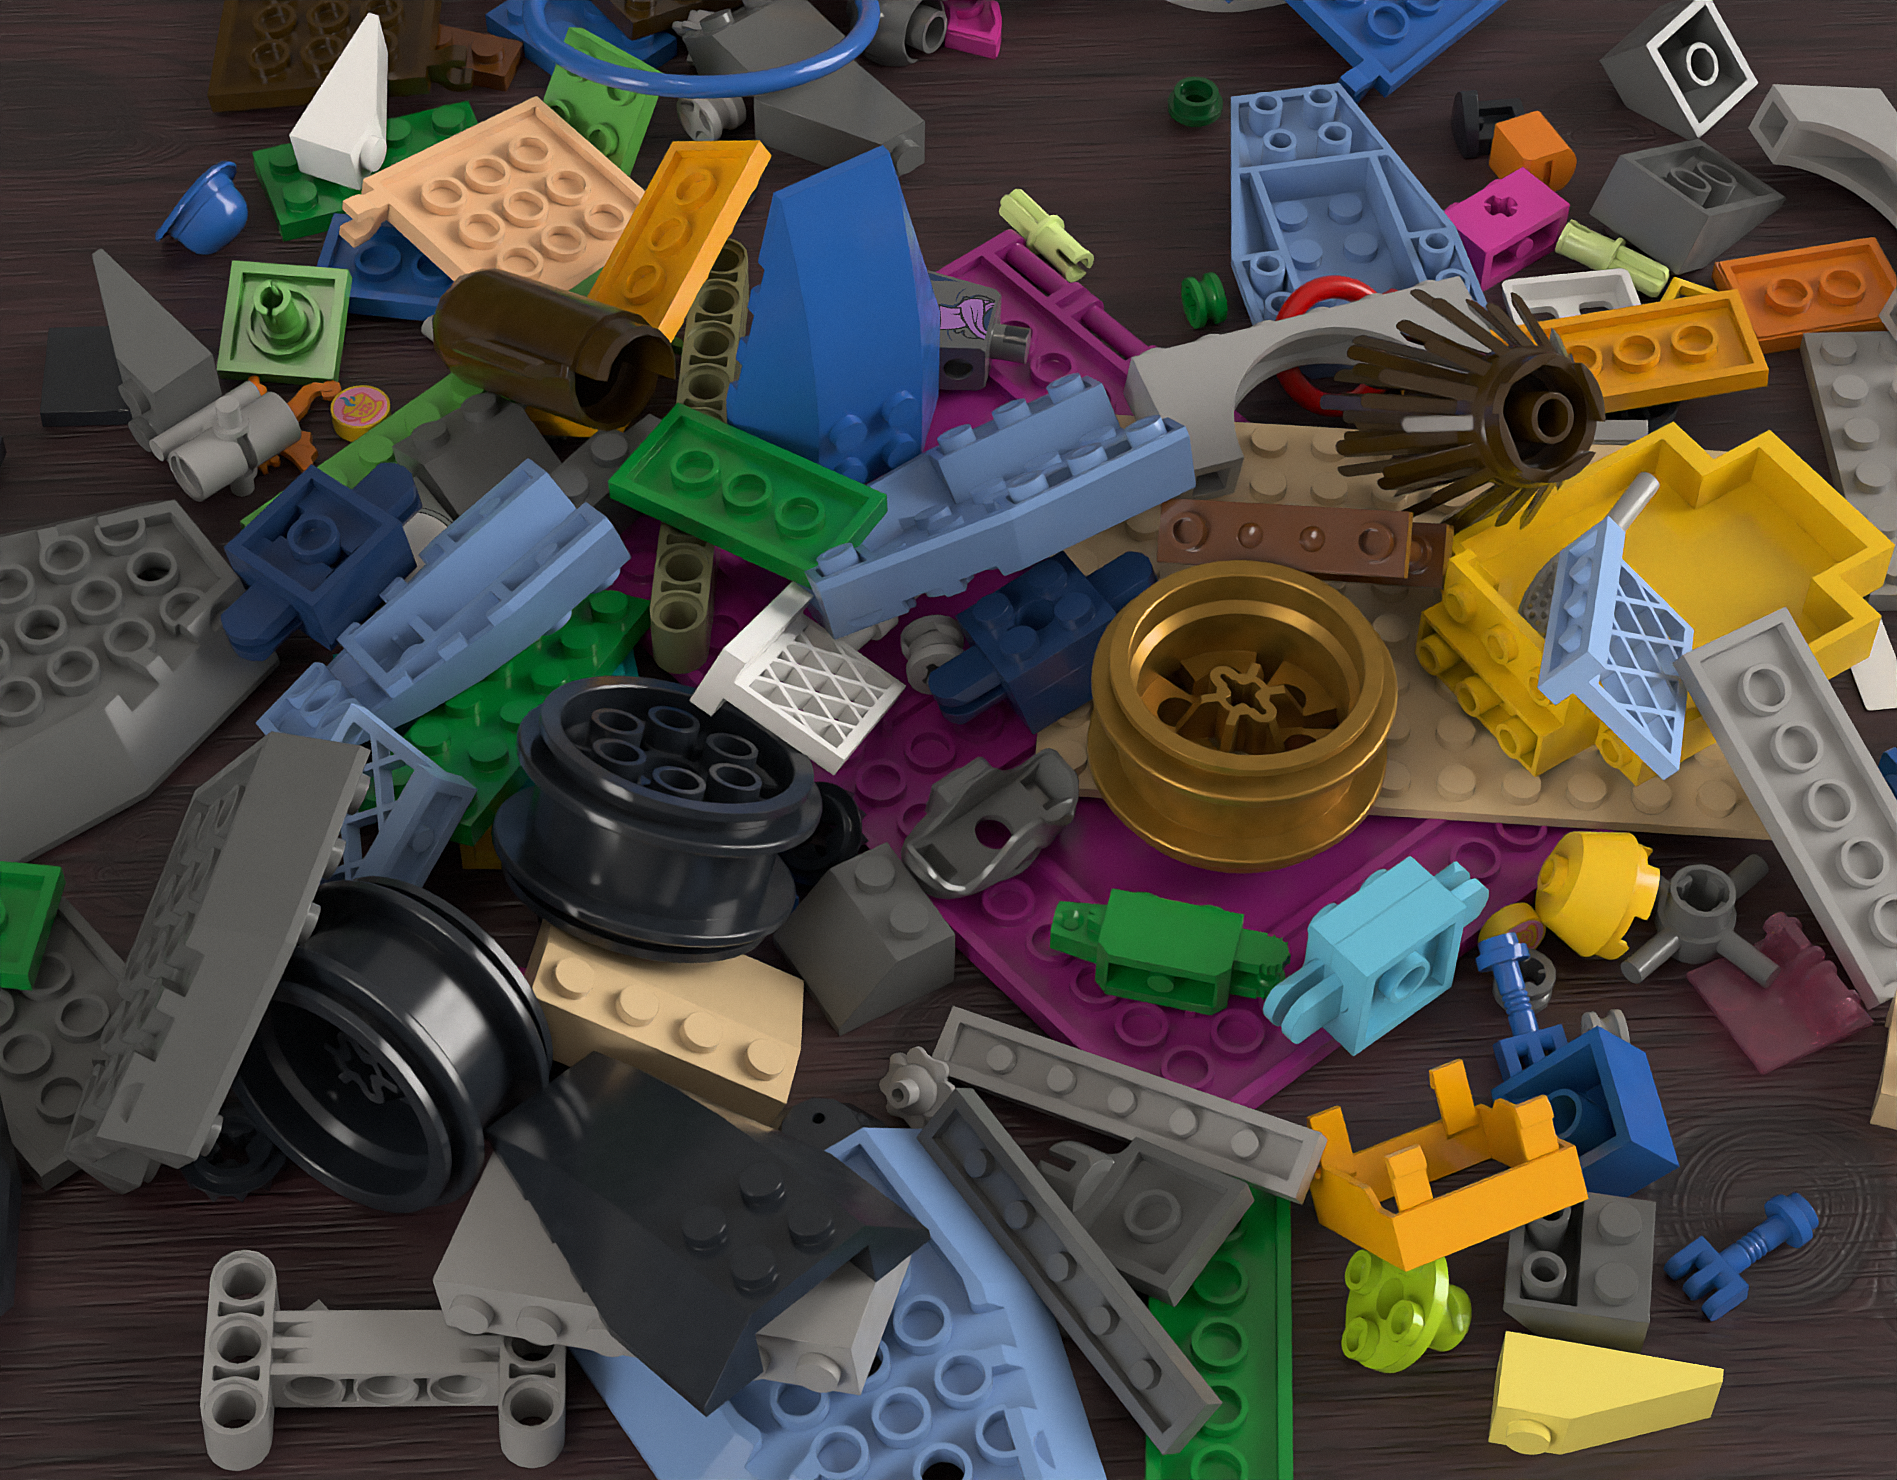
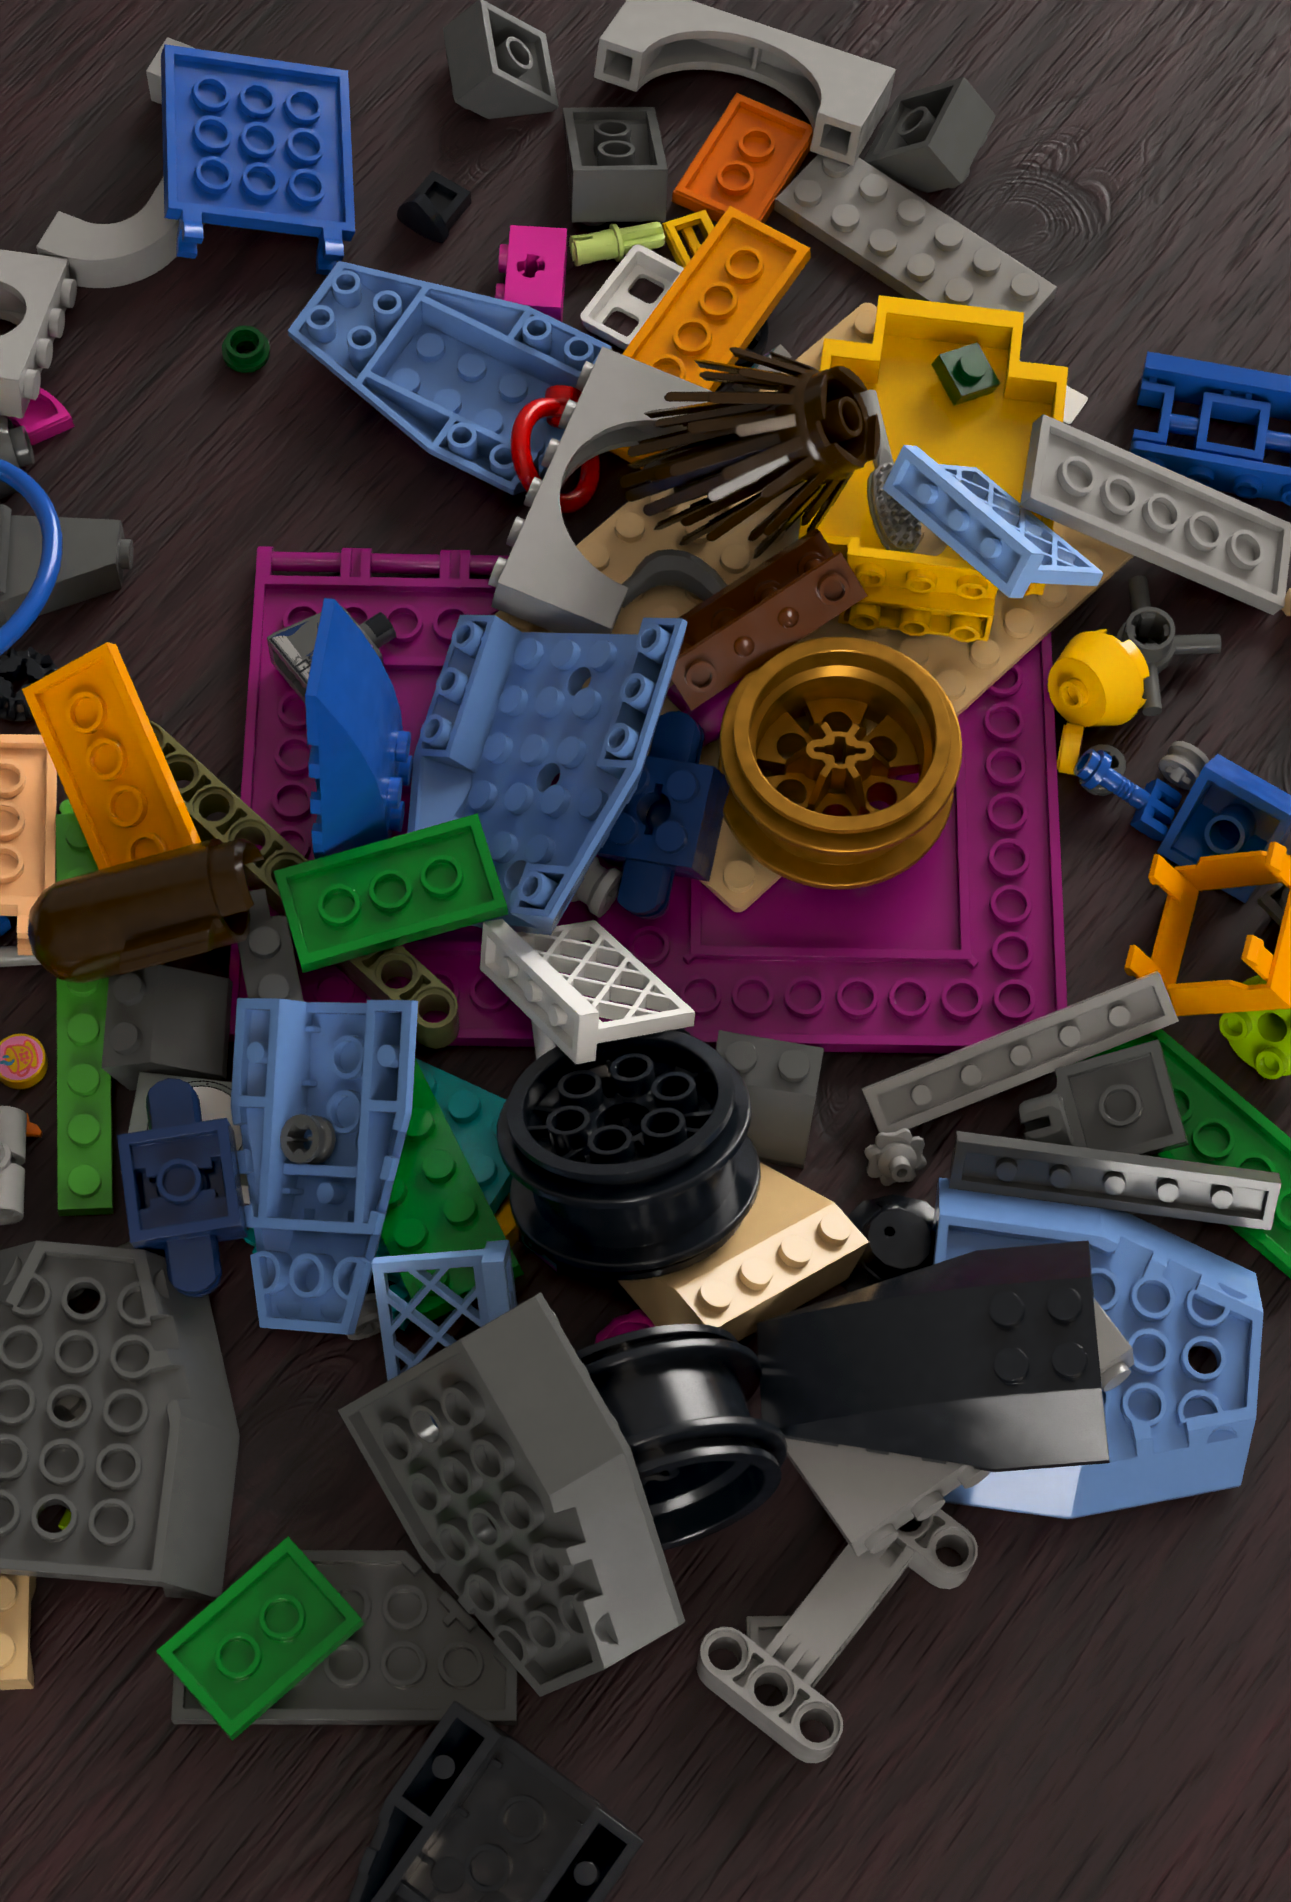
camera: 50 degrees left, 15 degrees up
(445, 601) = (293, 1139): none -> dark grey bush
(1029, 800) = (755, 924): dark grey piece -> none
(1045, 234) = (275, 531): yellowish green axle -> none
(1170, 950) = (937, 942): green hinge -> none
(1204, 300) = (426, 490): green bush -> none
(1301, 480) = (673, 569): none -> dark grey piece
(1378, 955) = (1057, 835): medium azure brick -> none
(1536, 146) = (489, 209): orange piece -> none
(1781, 555) = (965, 373): none -> dark green plate
(1794, 1014) = (1247, 657): clear pink hinge -> none

